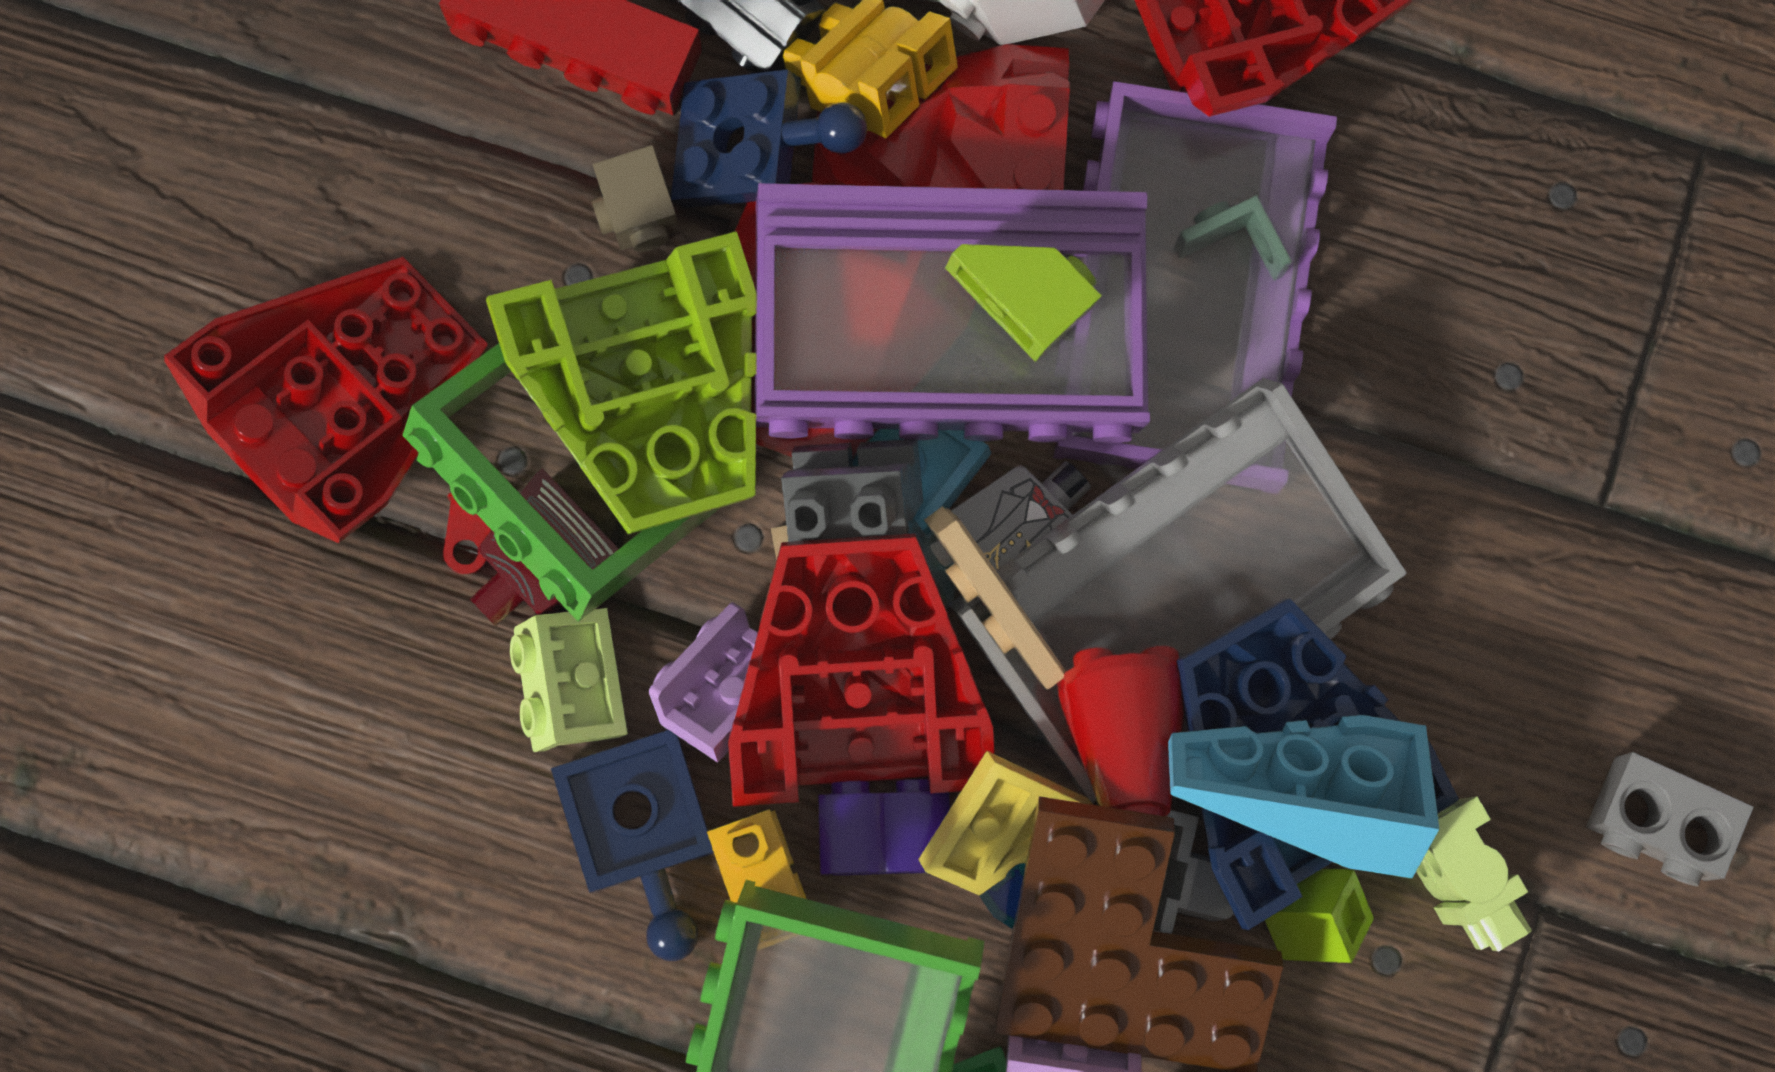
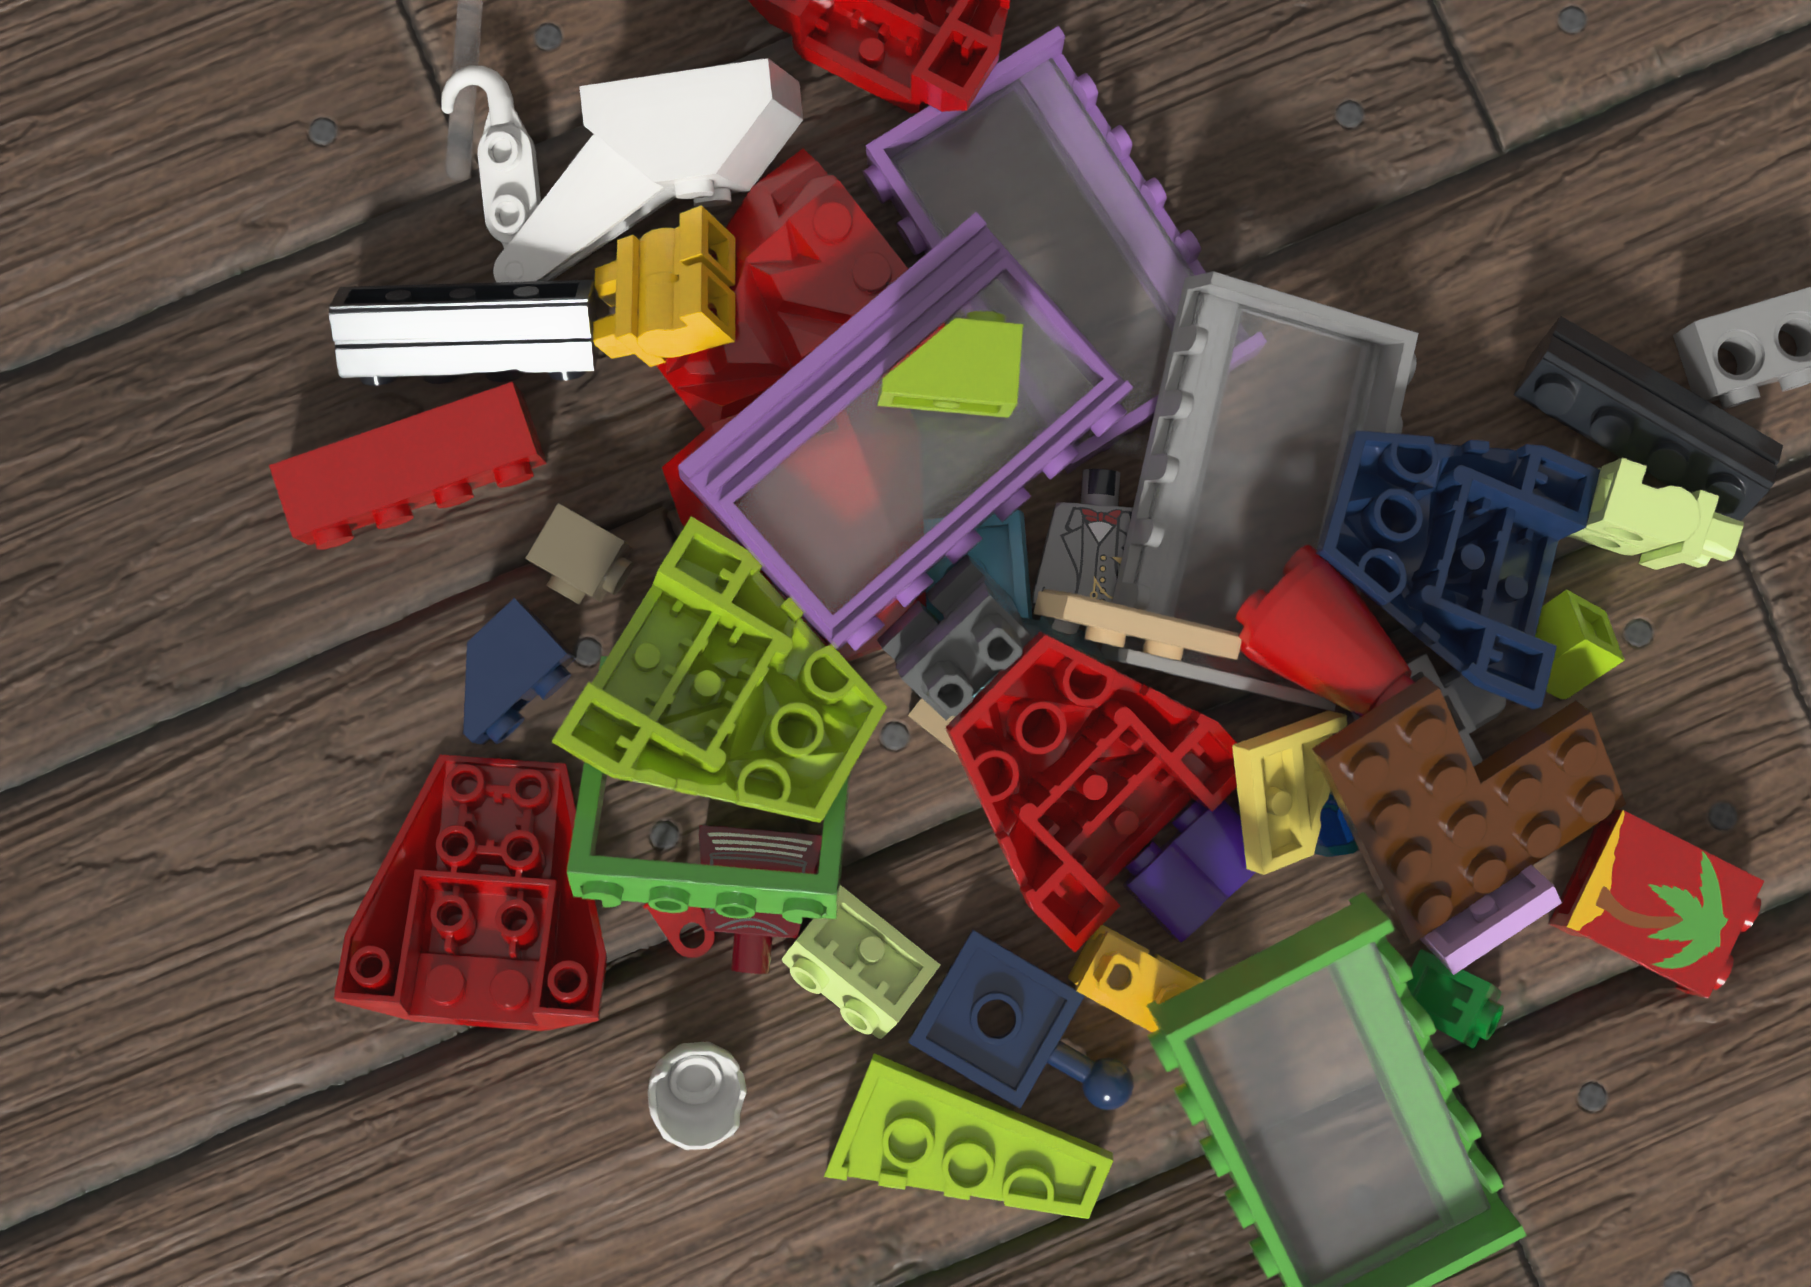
camera: 35 degrees left, 5 degrees up
(360, 666) = (696, 1095): none -> white hair
(507, 235) = (507, 668): none -> dark blue slope
(513, 868) = (950, 1141): none -> lime wing
(704, 685) = (972, 878): lavender bracket -> none
(769, 112) = (654, 440): dark blue plate -> none
(1221, 221) = (1069, 162): sand green bracket -> none
(1336, 791) = (1513, 548): medium azure wedge -> none
(1532, 798) = (1648, 419): none -> black brick

